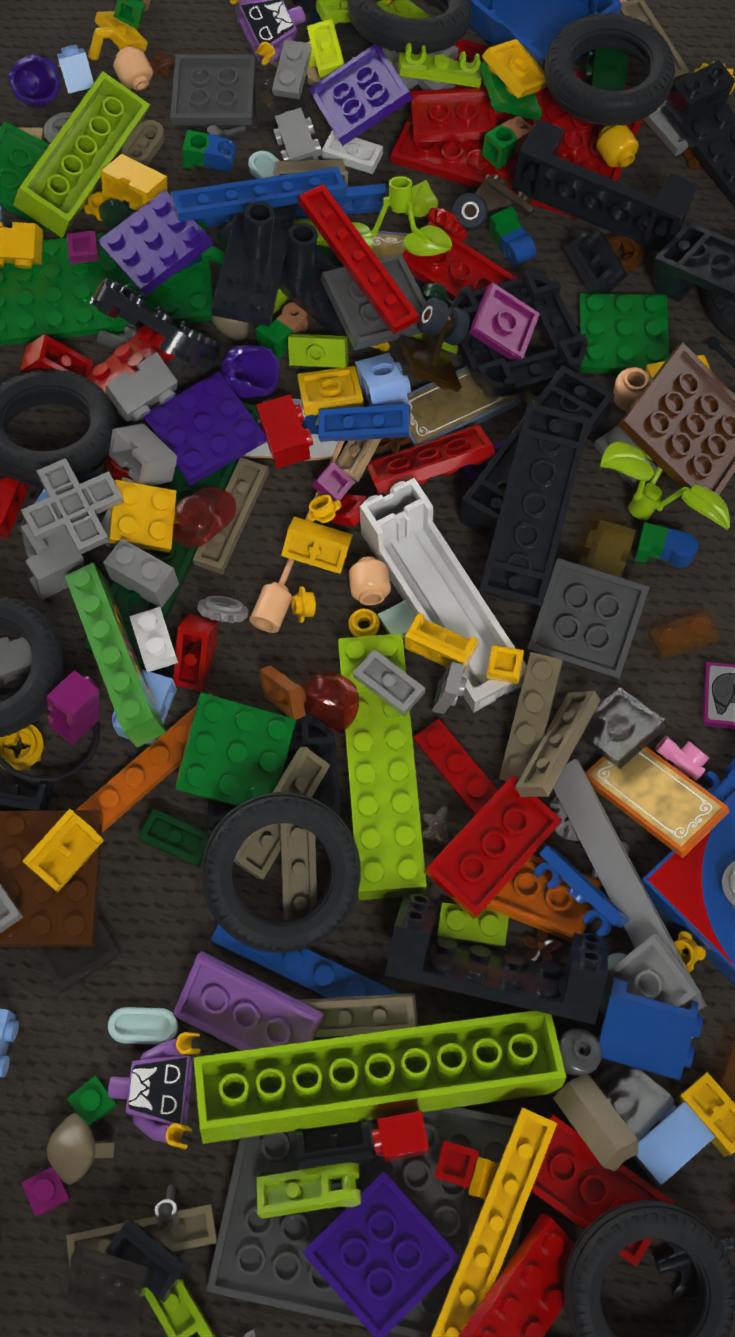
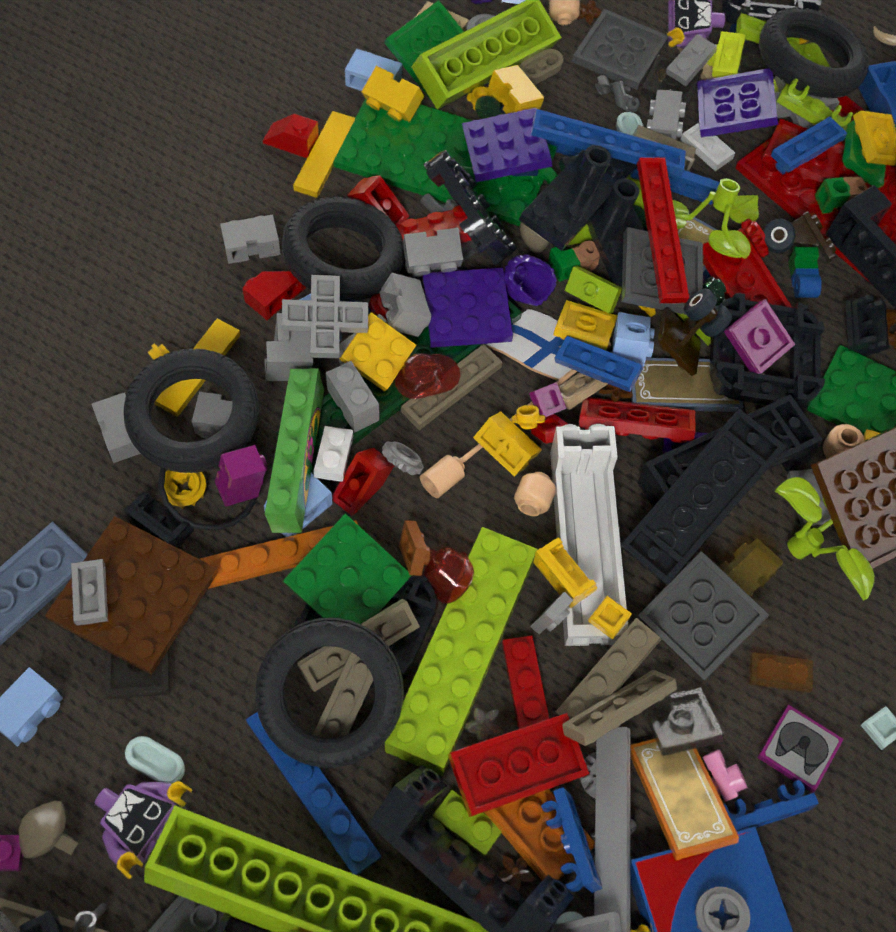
camera: 20 degrees right, 5 degrees down
(63, 850) = (167, 584): yellow hinge -> none
(82, 247) = (448, 123): magenta plate -> none
(92, 1101) = (80, 800): green plate -> none
(174, 837) = (262, 619): dark green plate -> none
(208, 151) = (589, 94): leg -> none
(243, 1008) = (240, 789): medium lavender tile -> none
(245, 142) = (624, 100): none -> dark grey arm
(284, 431) = (529, 340): red brick -> none
(303, 604) = (470, 486): yellow plate -> none
(364, 615) = (517, 520): yellow plate -> none
(365, 1014) = (319, 840): dark tan plate -> none
(389, 682) = (502, 583): light grey plate -> none
(397, 618) = (541, 534): light aqua tile -> none
(453, 106) = (808, 145): none -> blue plate
(666, 544) = (805, 588): leg -> none

